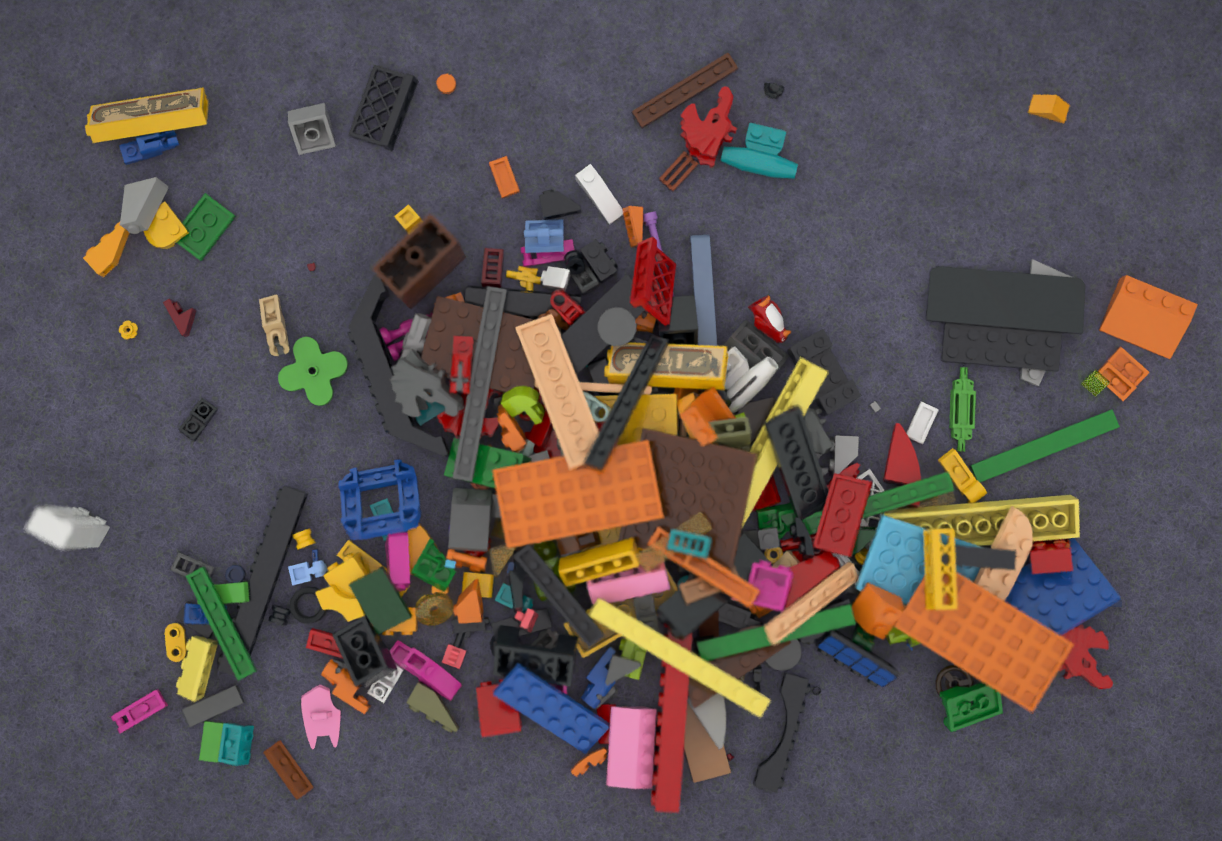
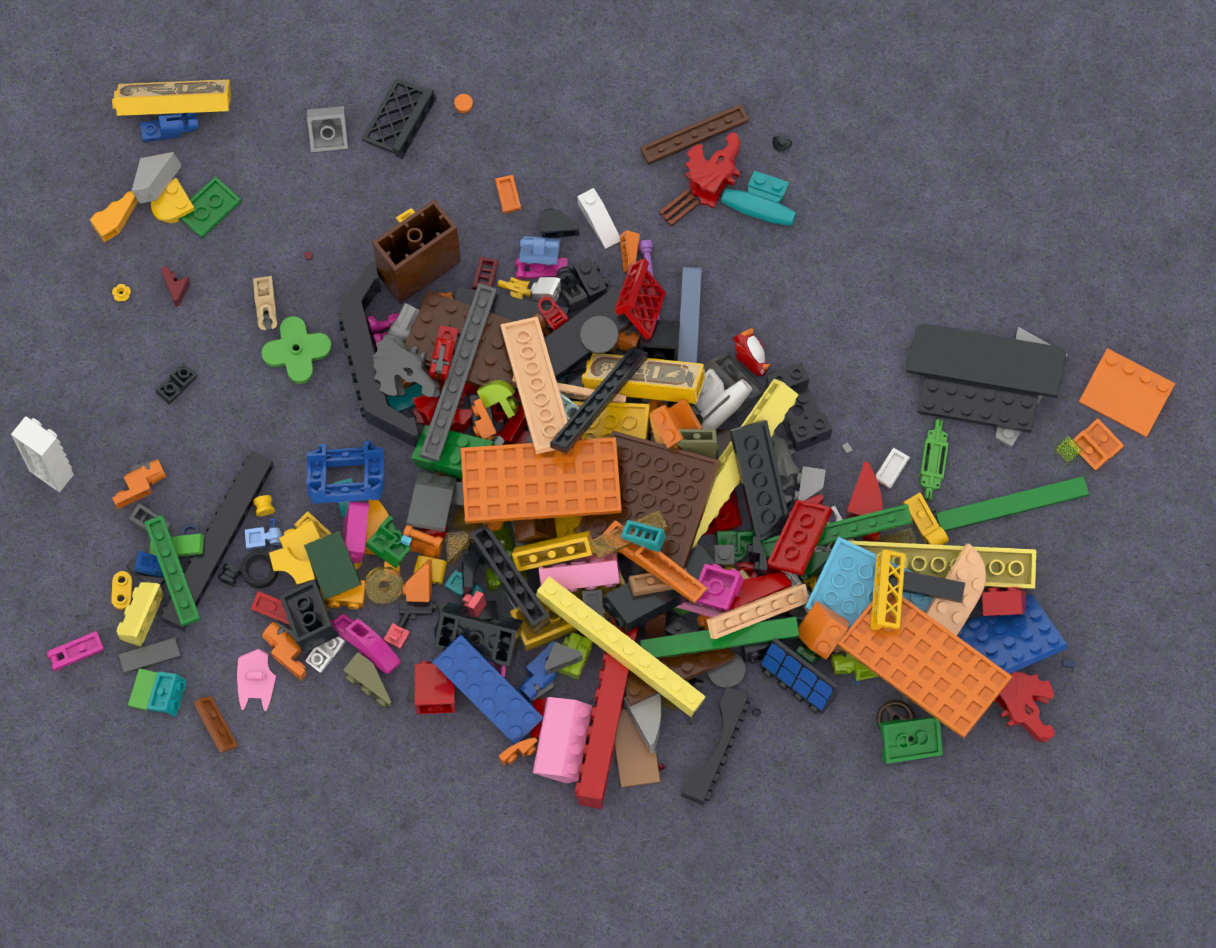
camera: 10 degrees right, 15 degrees down
(175, 529) = (138, 482): none -> orange plate
(1049, 107) = (1051, 189): light orange slope -> none

